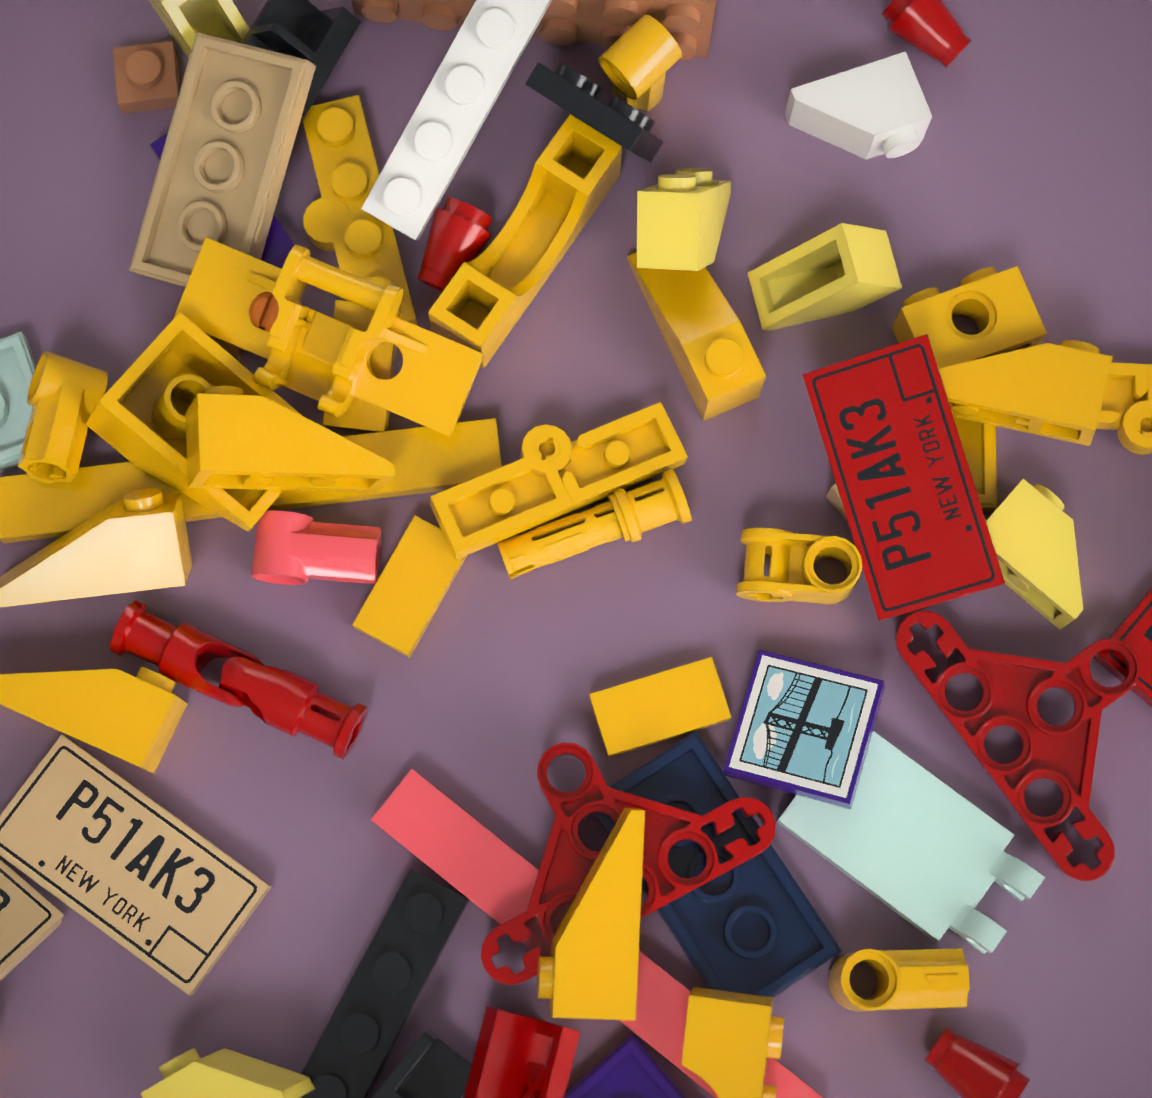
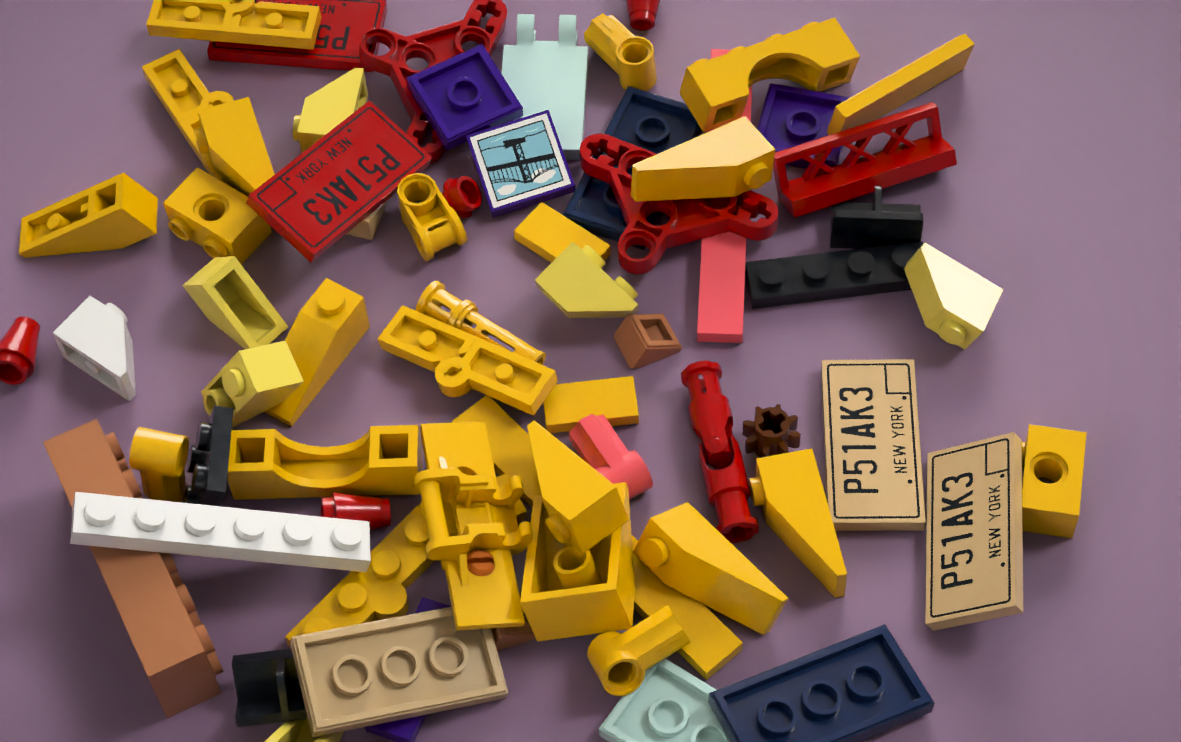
camera: 120 degrees left, 20 degrees down
(203, 736) = (771, 432): none -> reddish brown gear
(452, 713) = (646, 339): none -> nougat slope
(555, 673) = (583, 288): none -> light yellow slope
(797, 636) = (462, 195): none -> red plate
(951, 721) = (464, 96): none -> dark purple tile
(1059, 189) = (92, 220): none -> yellow slope

